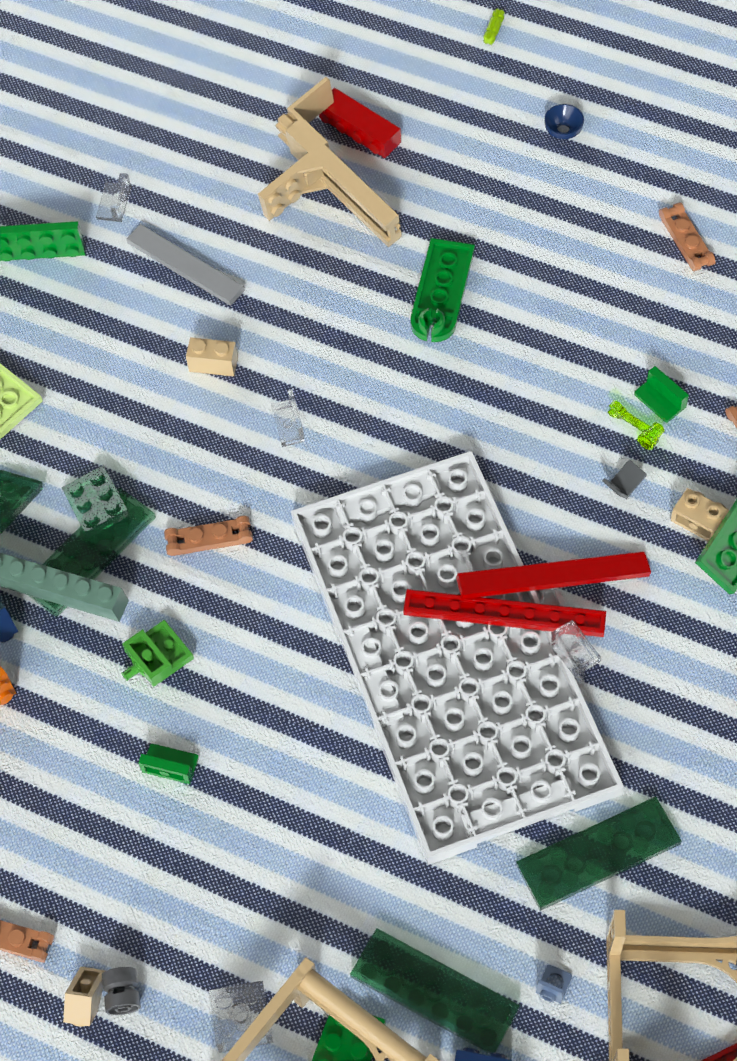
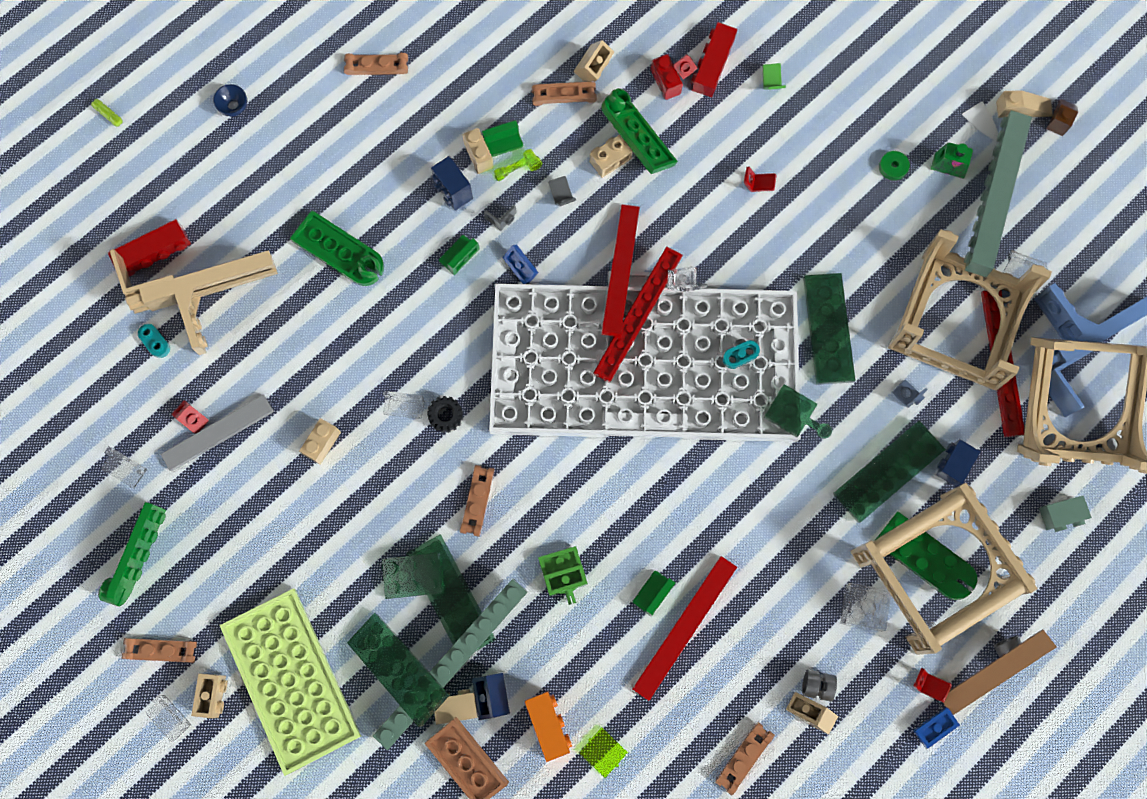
camera: 75 degrees left, 15 degrees up
(141, 813) = (684, 628): none -> red tile
(189, 233) = (190, 417): none -> bracket
(263, 166) = (153, 339): none -> teal plate
(295, 476) = (445, 403): none -> black tyre
(456, 834) = (793, 411): none -> clear green plate
(494, 407) = (459, 254): none -> green panel
(504, 746) = (740, 355): none -> teal plate
(511, 471) = (520, 264): none -> blue plate
(560, 435) = (507, 219): none -> dark grey bracket
(572, 360) = (451, 183): none -> dark blue brick
(630, 374) = (478, 151): none -> tan brick

